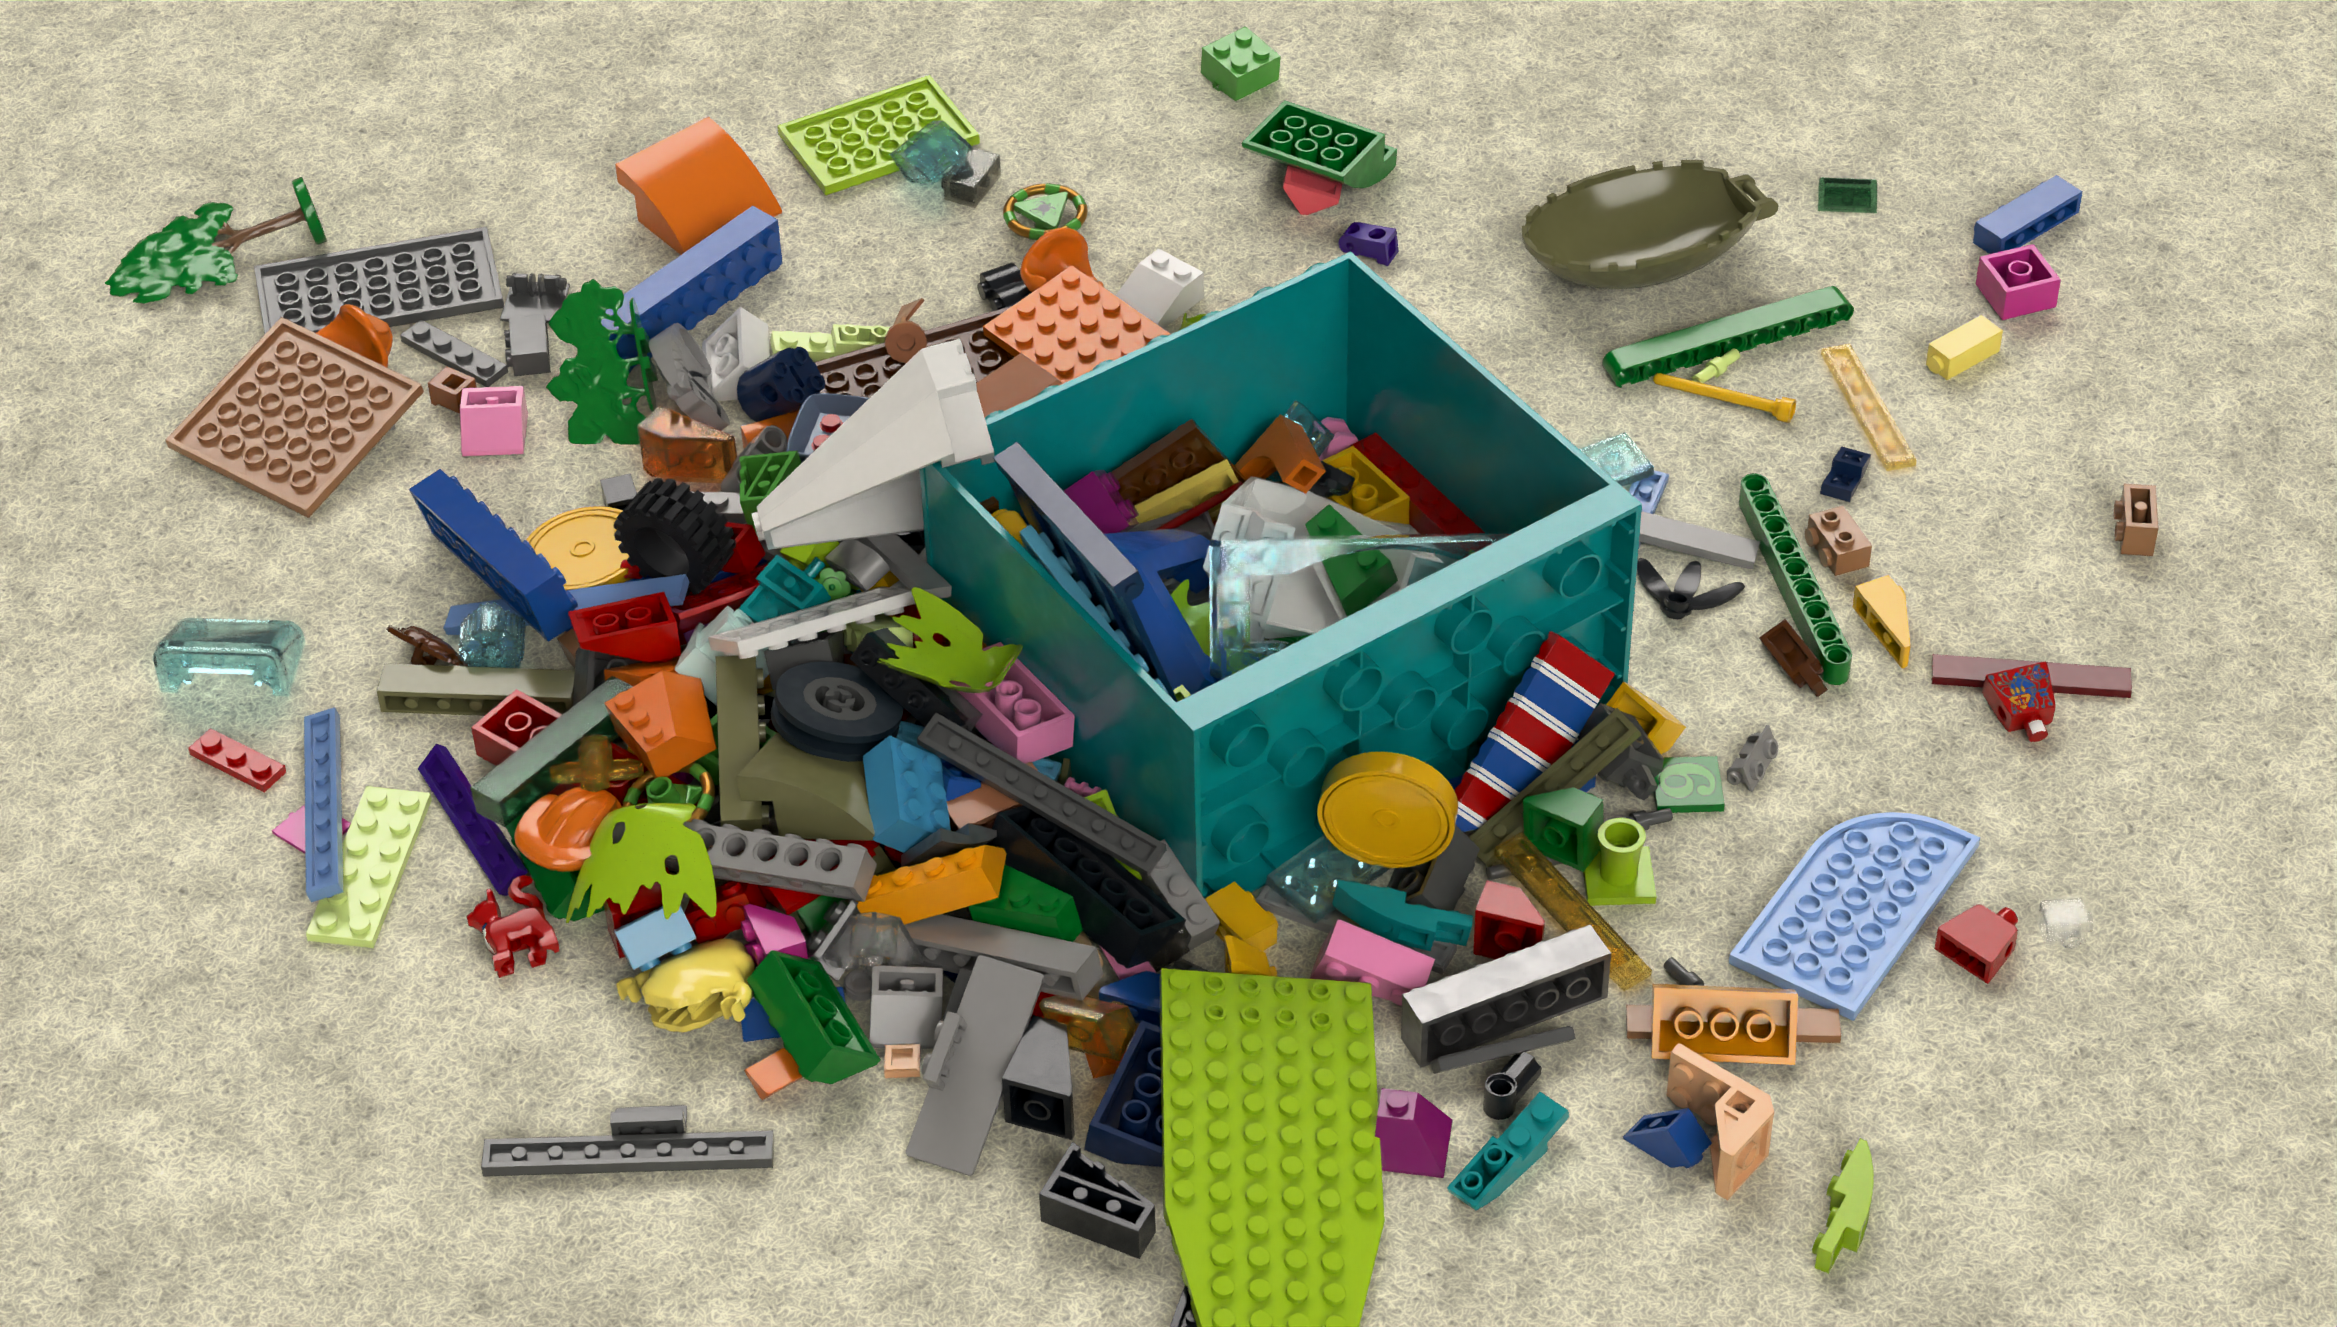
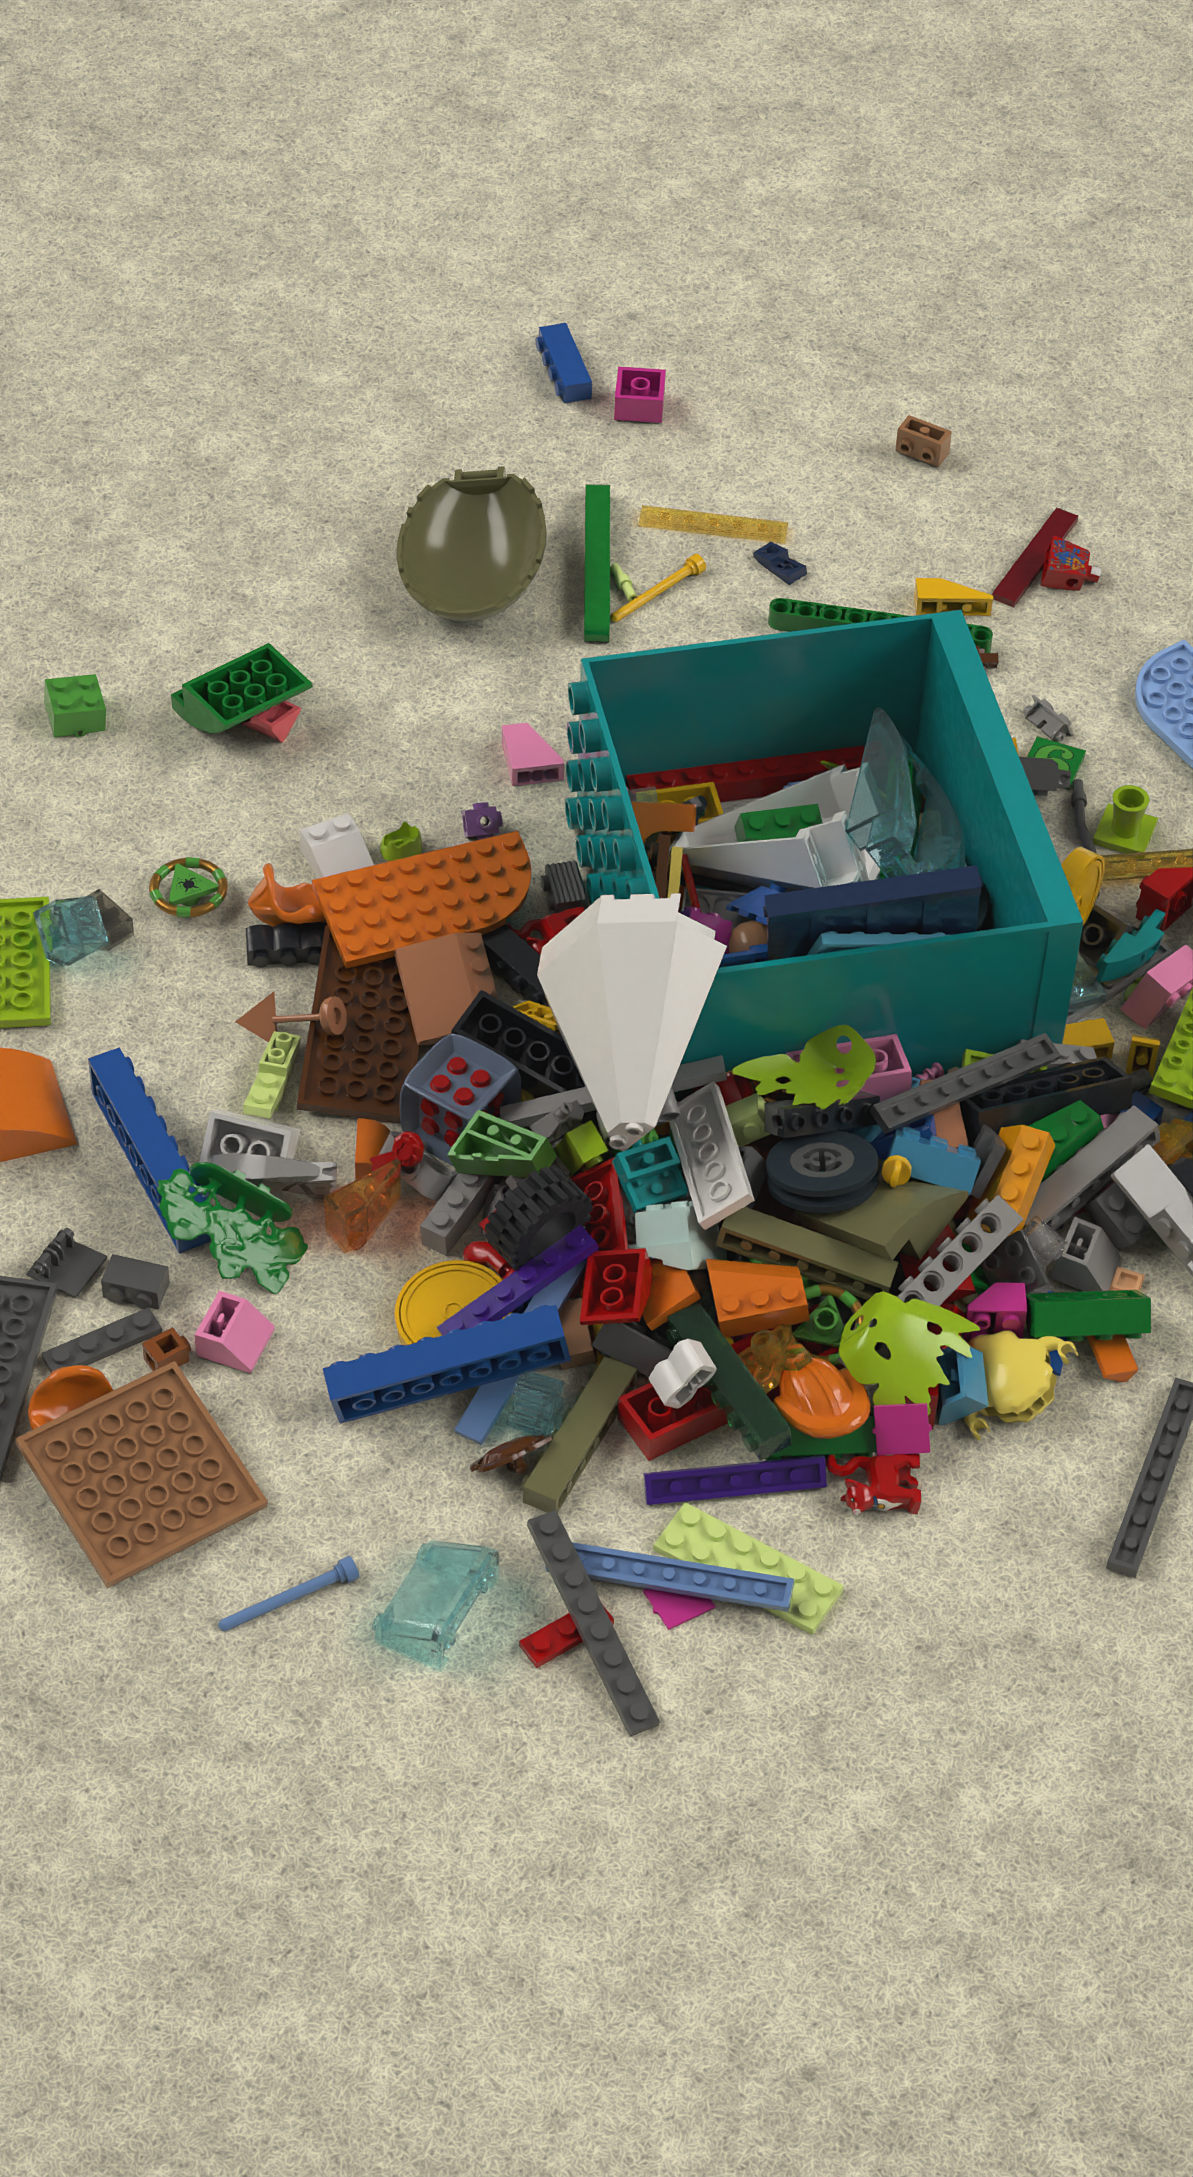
camera: 70 degrees left, 5 degrees up
(241, 765) = (593, 1623): none -> dark grey plate
(245, 585) = (343, 1571): none -> medium blue piece
(542, 707) = (682, 1373): none -> white brick
(567, 907) = (902, 1429): none -> dark pink piece
(612, 567) = (524, 1282): none -> dark purple plate
(618, 491) = (386, 1273): brick -> none
(649, 1120) = (1125, 1454): panel -> none
(748, 438) = (407, 1149): none -> red piece
(779, 384) = (331, 1118): dark blue cylinder -> none
(858, 760) = (896, 1170): none -> yellow tile
(1370, 241) = (356, 711): dark purple leg -> none
(1565, 825) = (1101, 823): green slope -> none
(1569, 771) = (1052, 796): olive plate -> none
(1838, 540) = (855, 590): medium nougat brick -> none
(1847, 195) = (474, 441): clear green slope -> none
(1964, 347) = (688, 450): light yellow brick -> none

